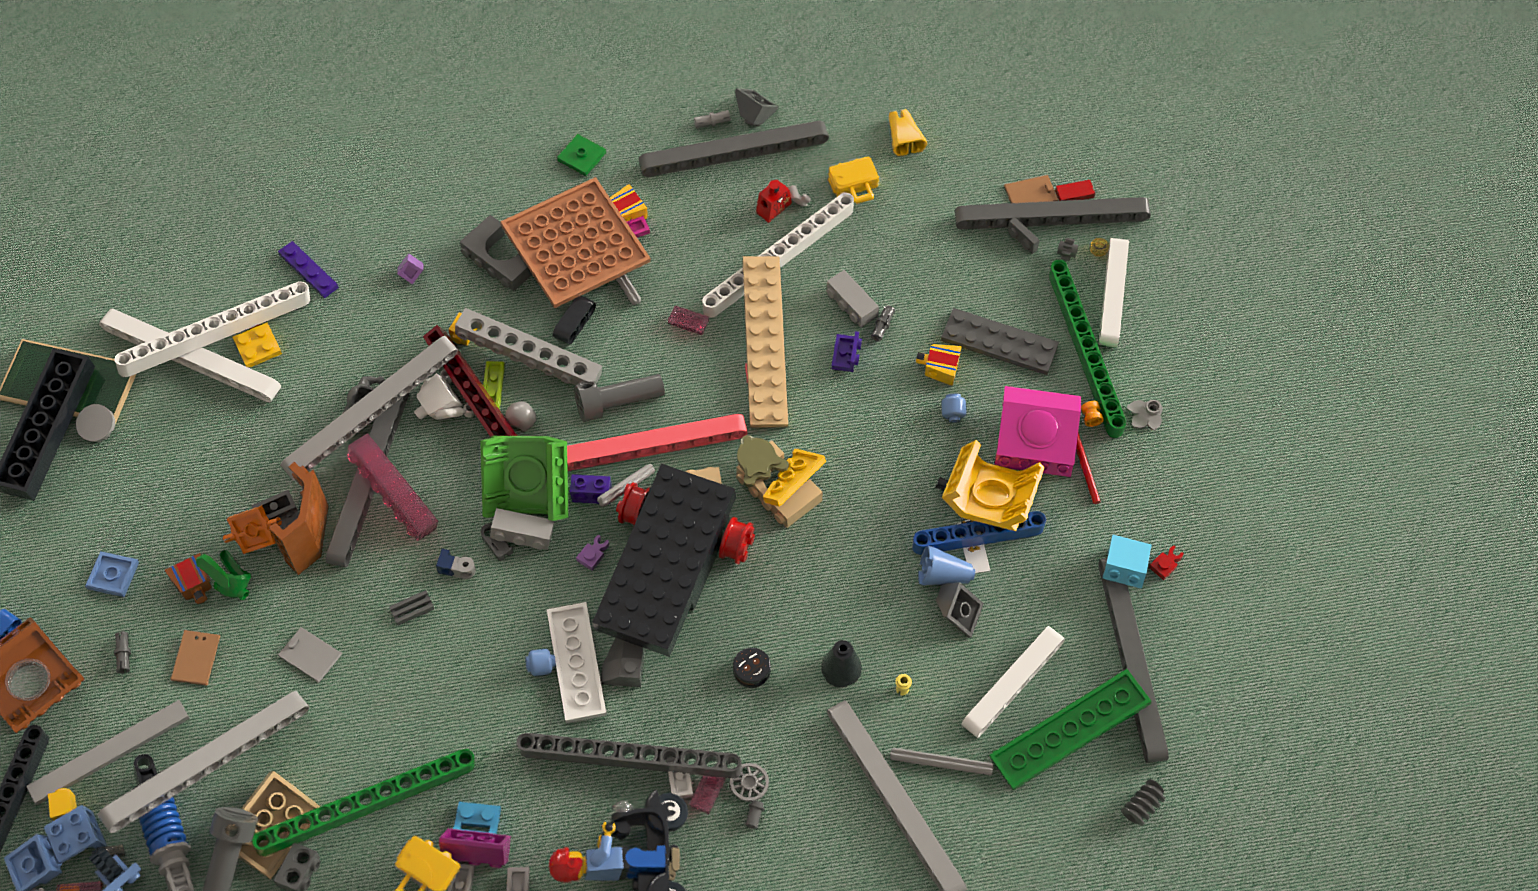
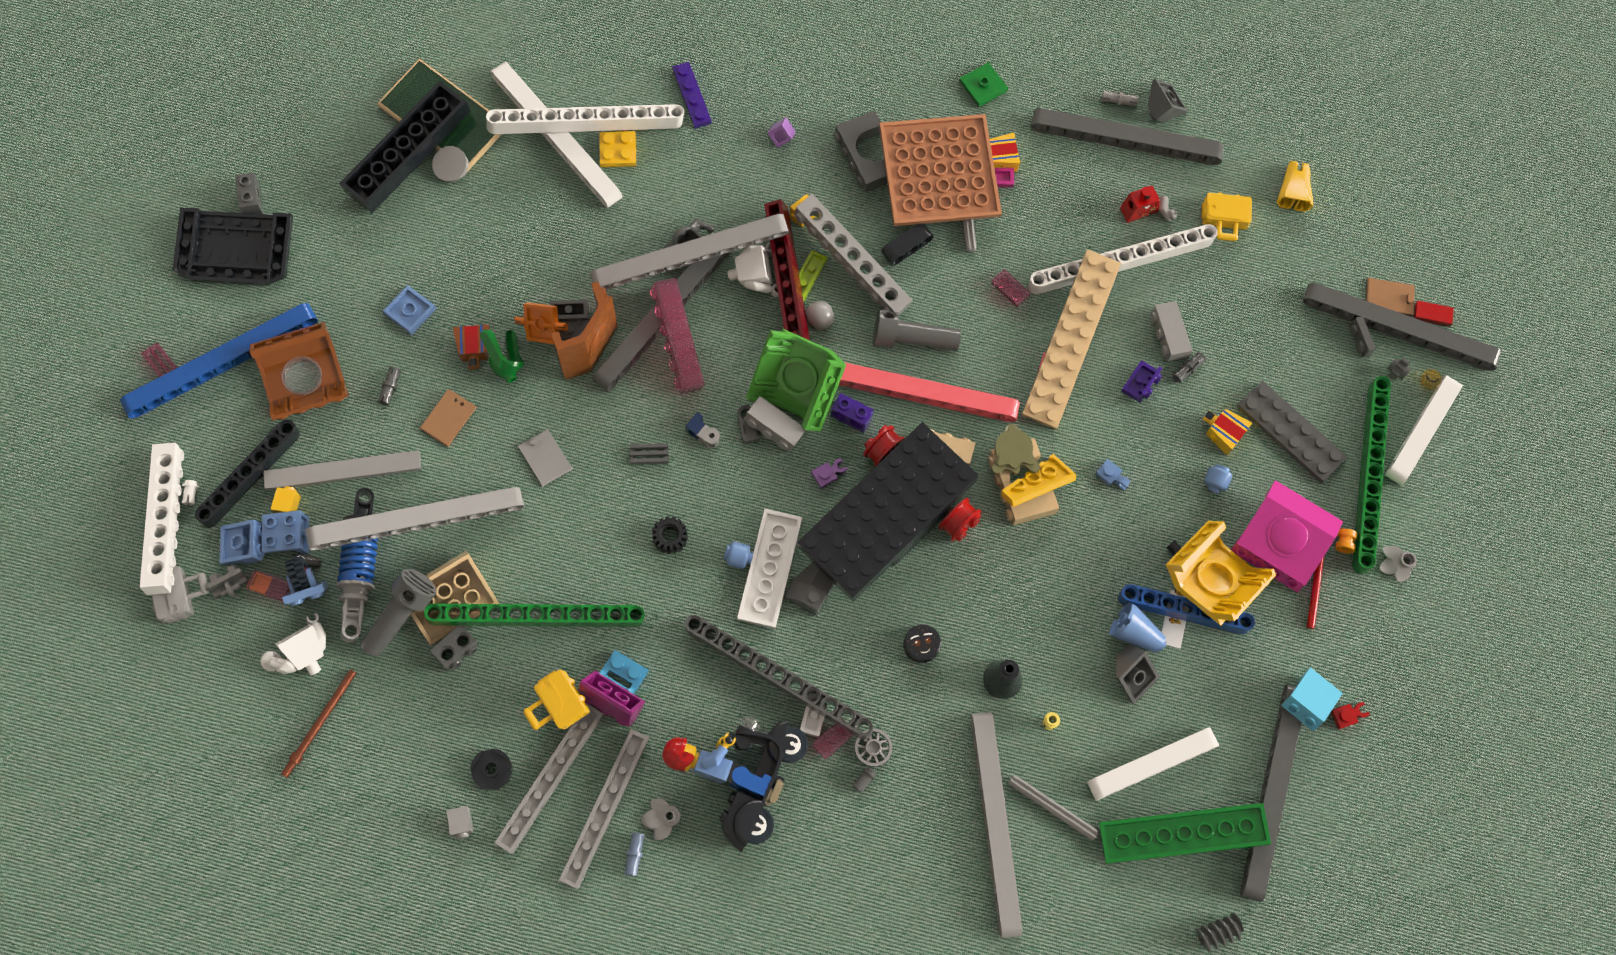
camera: 20 degrees right, 10 degrees up
(465, 684) = (668, 523): none -> black tyre
(618, 490) = (876, 425): light grey axle -> none
(855, 444) = (1111, 473): none -> medium blue plate

